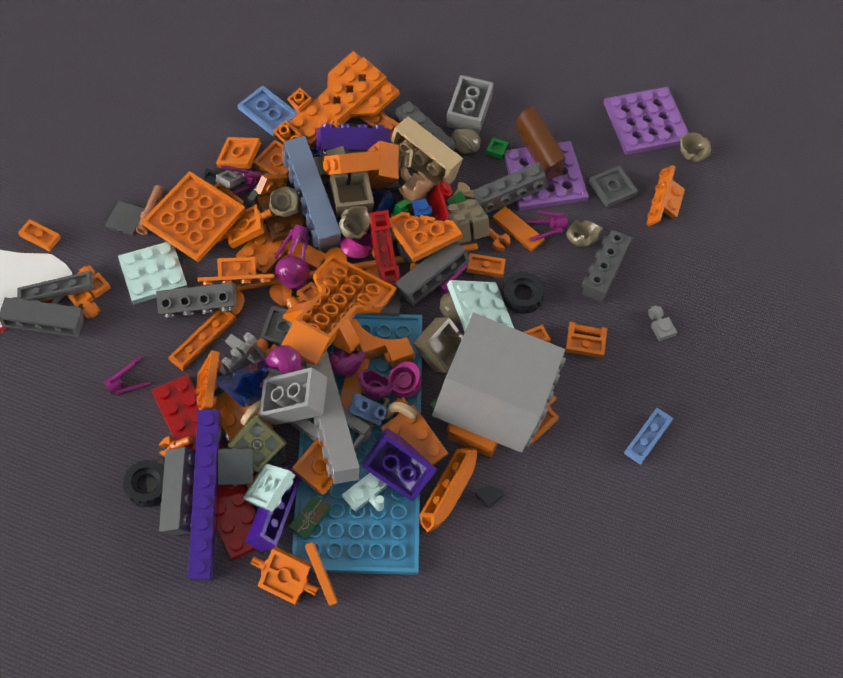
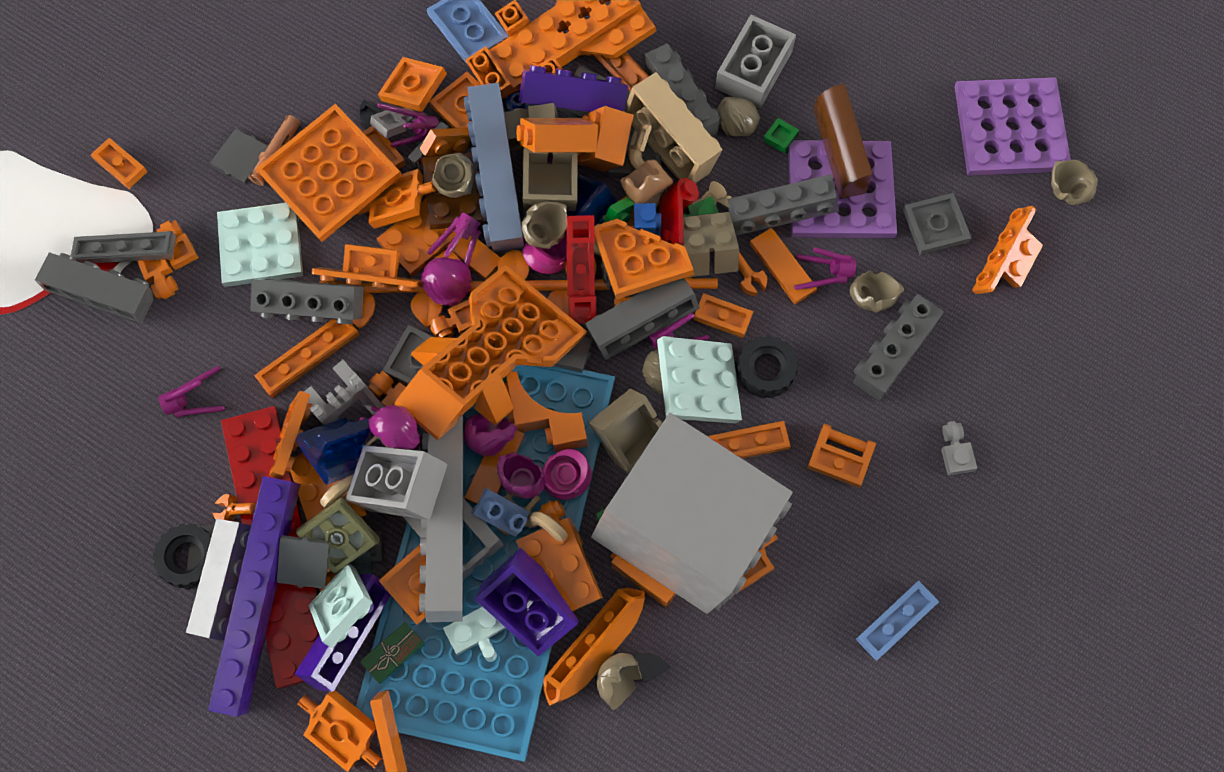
camera: 15 degrees right, 10 degrees up
(469, 505) = (617, 679): none -> dark tan hair

